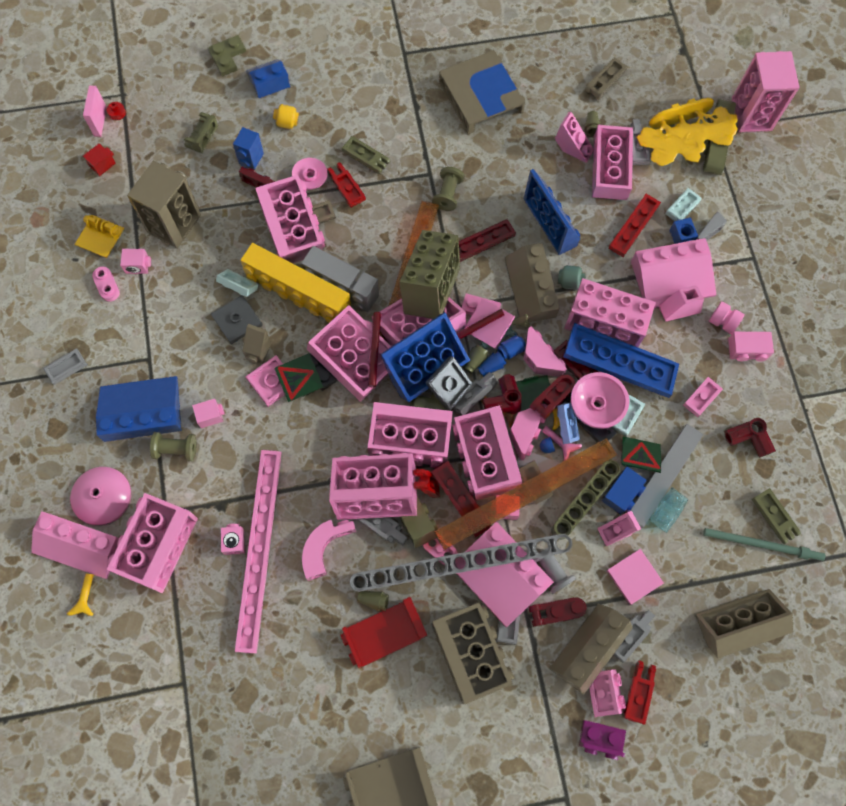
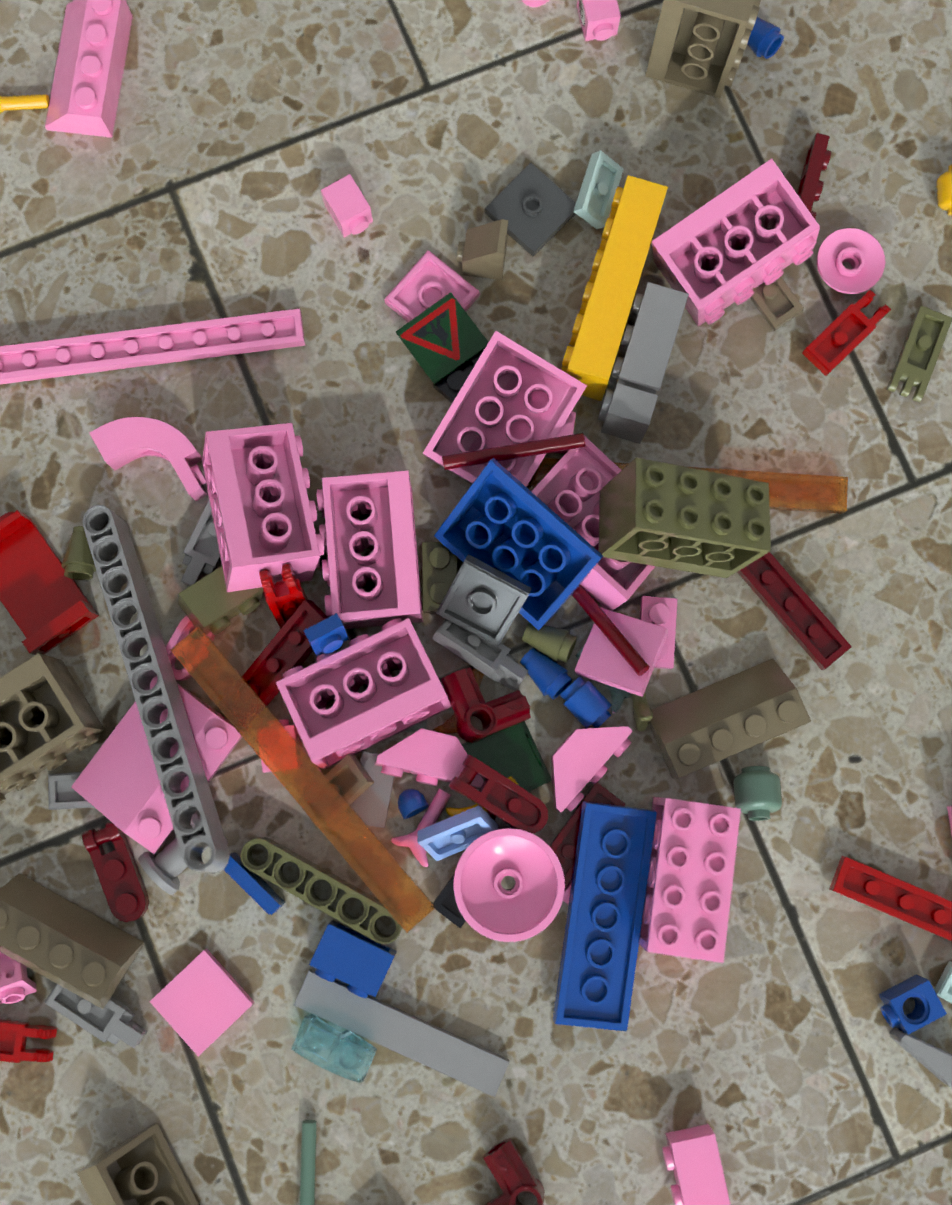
camera: 80 degrees right, 10 degrees up
(110, 502) = (179, 96): bright pink dish -> none
(138, 409) = (334, 94): blue slope -> none
(152, 542) = (102, 176): bright pink brick -> none
(173, 446) = (273, 142): olive piece -> none
(202, 133) = (884, 54): olive hinge -> none
(232, 539) = (138, 302): bright pink brick -> none
(248, 148) = (868, 136): blue piece -> none
(451, 177) = (909, 522): olive piece -> none
(456, 460) = (327, 635): none -> blue plate
(550, 214) = (882, 729): blue slope -> none
(576, 536) = (253, 885): none -> blue tile
(619, 528) = (279, 959): bright pink slope -> none
(631, 416) = (514, 955): light aqua plate -> none
(641, 454) = (426, 981): dark green piece -> none
(674, 267) = (817, 998): bright pink slope -> none
(682, 304) = (751, 1021): bright pink slope -> none
(702, 397) = (569, 1087): bright pink plate -> none
(724, 316) = (744, 1116): bright pink wheel -> none

